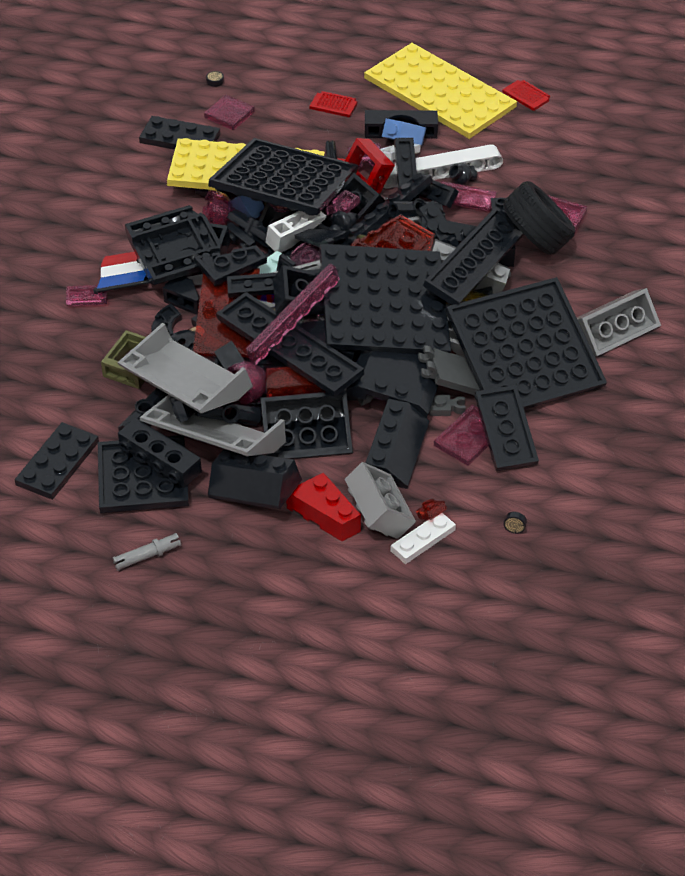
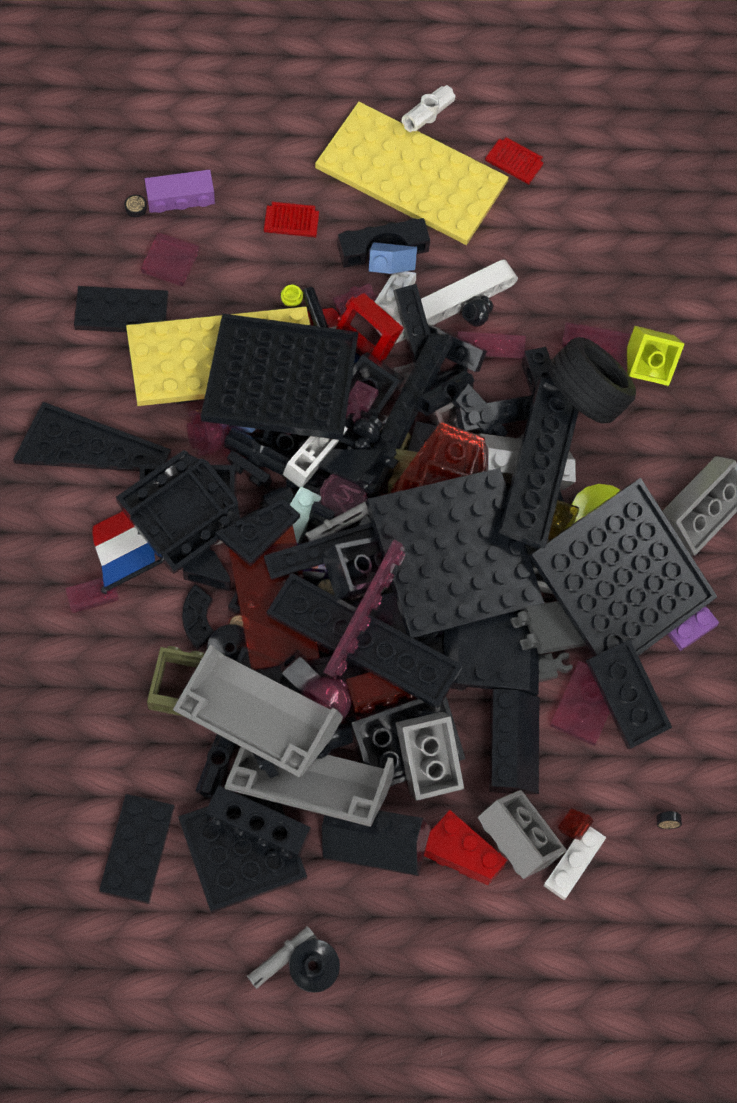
camera: 20 degrees left, 20 degrees up
(109, 202) = (76, 441): none -> black wing
(172, 551) = (326, 965): none -> black dish
(251, 73) = (179, 191): none -> medium lavender brick
(316, 143) = (292, 295): none -> neon yellow plate
(319, 433) = (430, 755): none -> light grey brick
(465, 51) = (428, 108): none -> white piece
(580, 402) = (693, 628): none -> medium lavender plate
(599, 219) = (653, 355): none -> neon yellow slope

